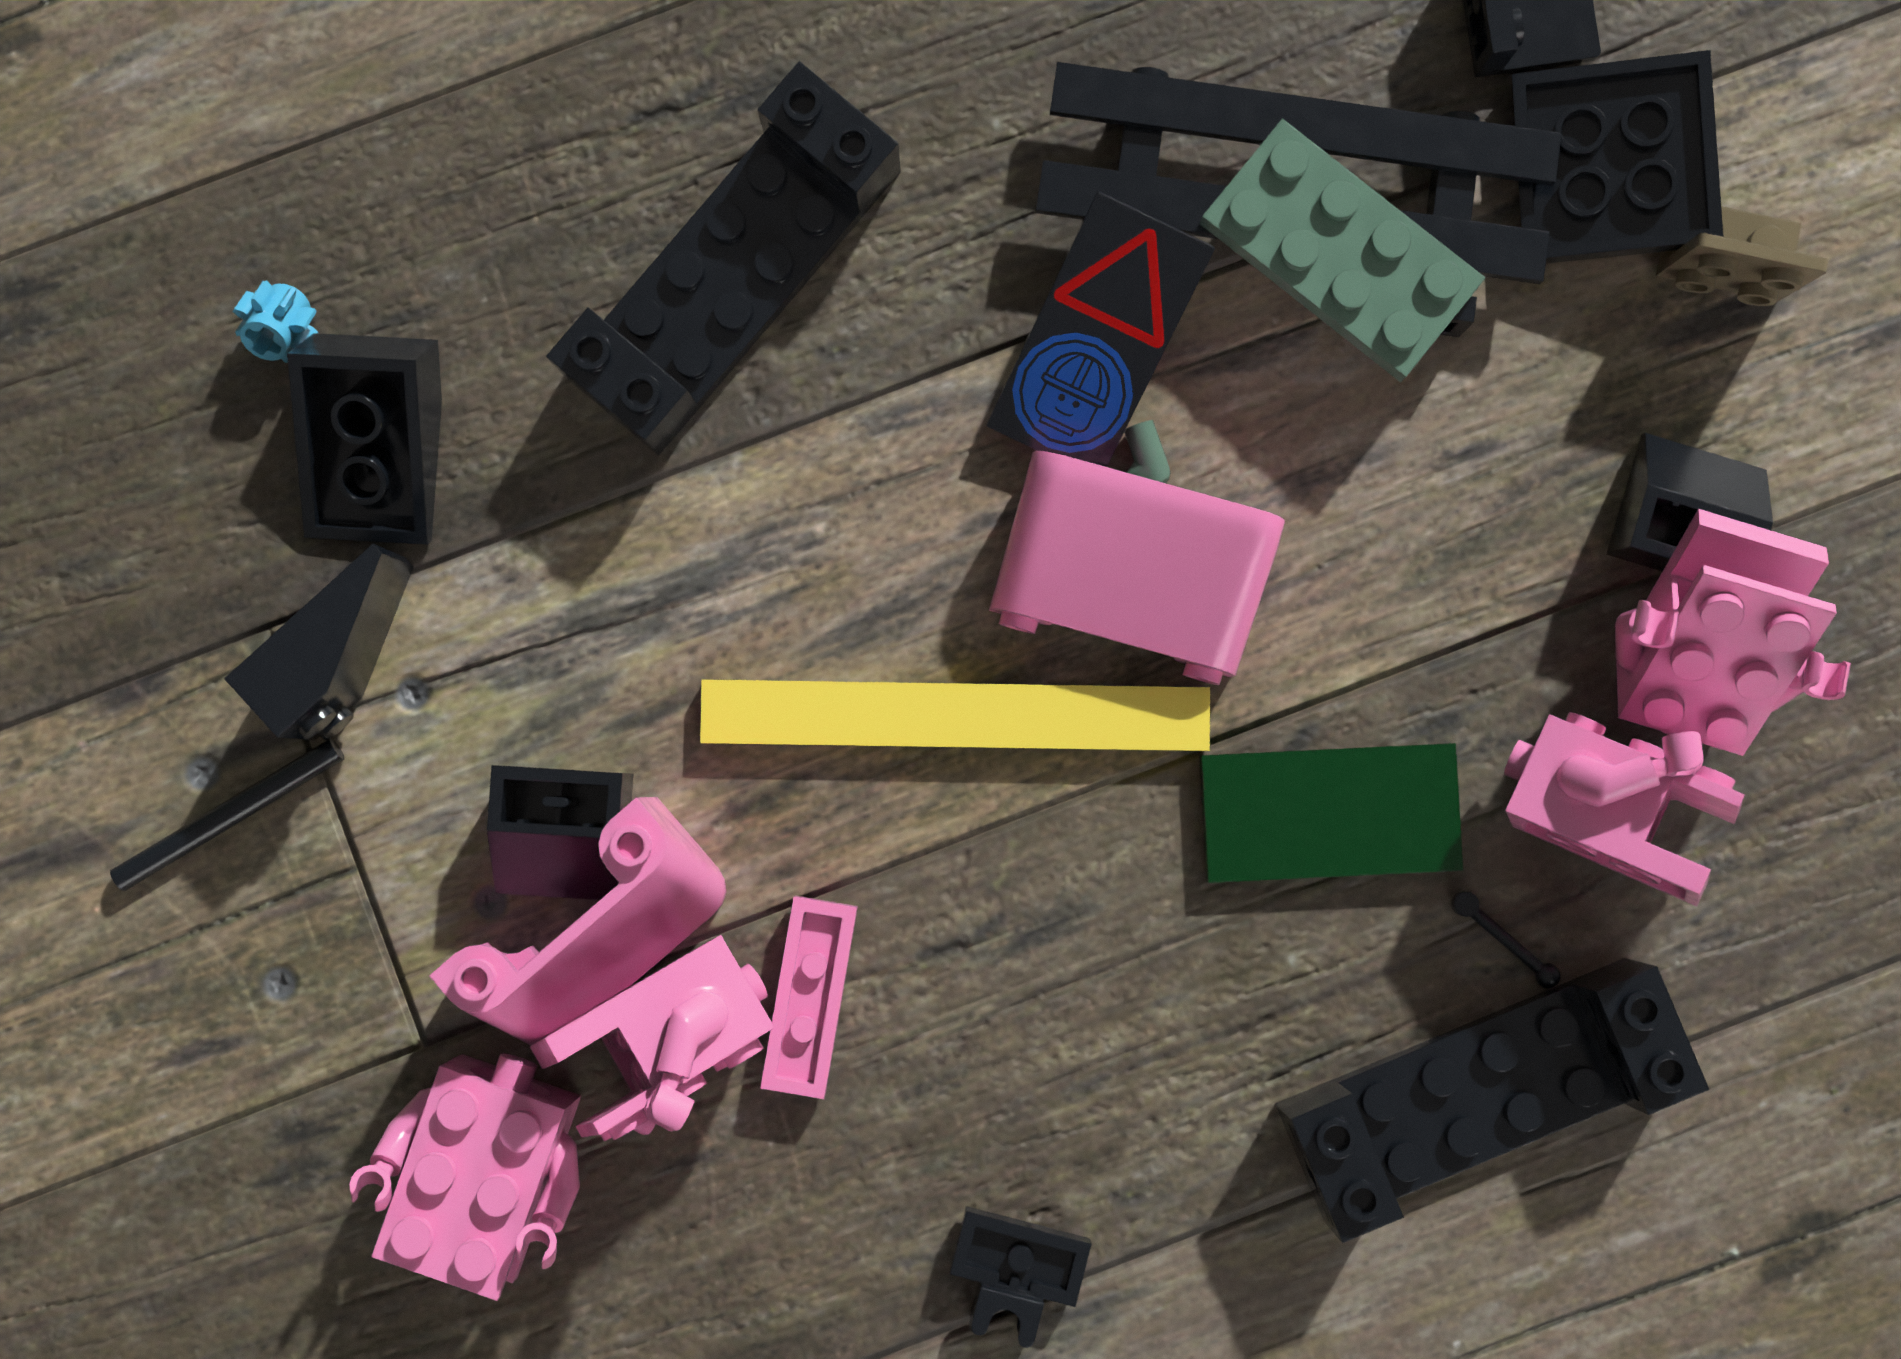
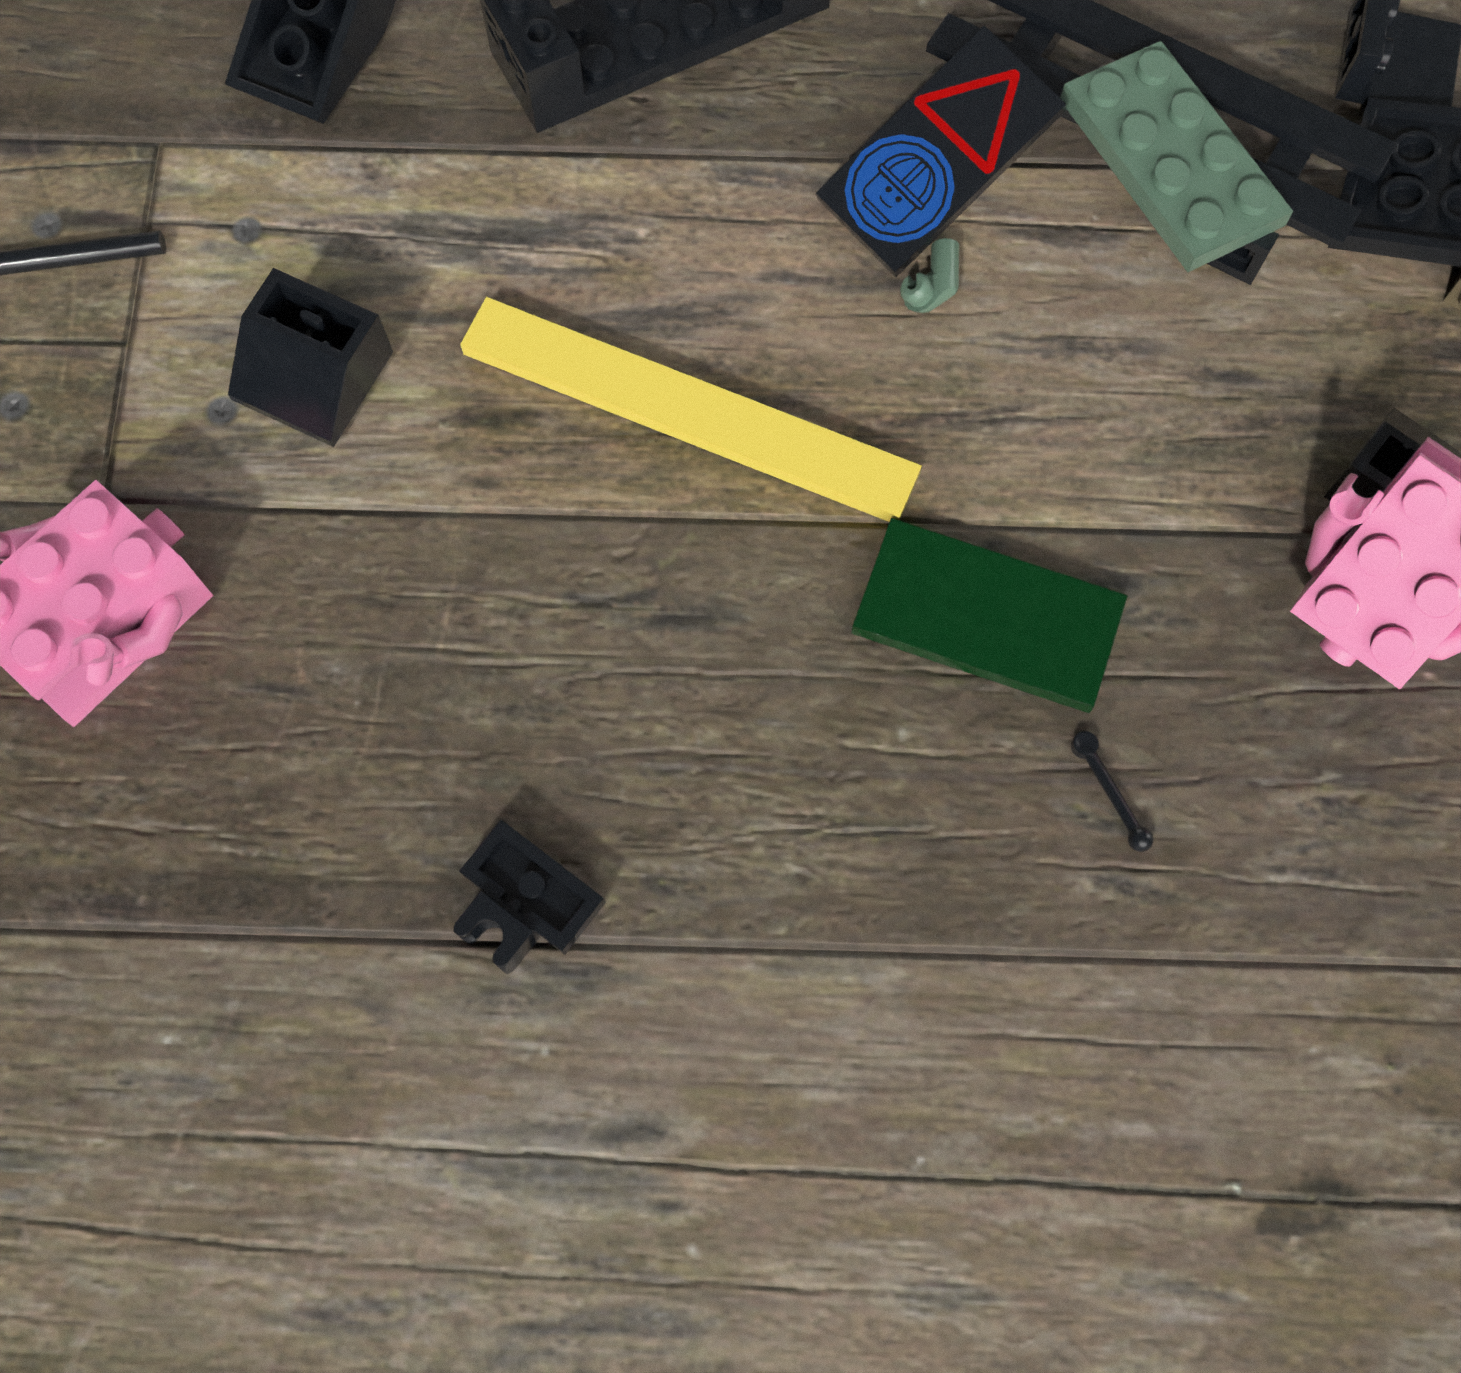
camera: 25 degrees right, 15 degrees down
(326, 652) = (194, 141): black slope -> none
(660, 900) = (288, 445): bright pink windscreen -> none
(666, 1035) = (315, 531): bright pink torso -> none
(809, 997) = (450, 582): bright pink plate -> none
(1136, 563) = (904, 327): bright pink windscreen -> none
(1489, 1091) = (1047, 914): black plate -> none
(1612, 796) = (1273, 677): bright pink torso -> none

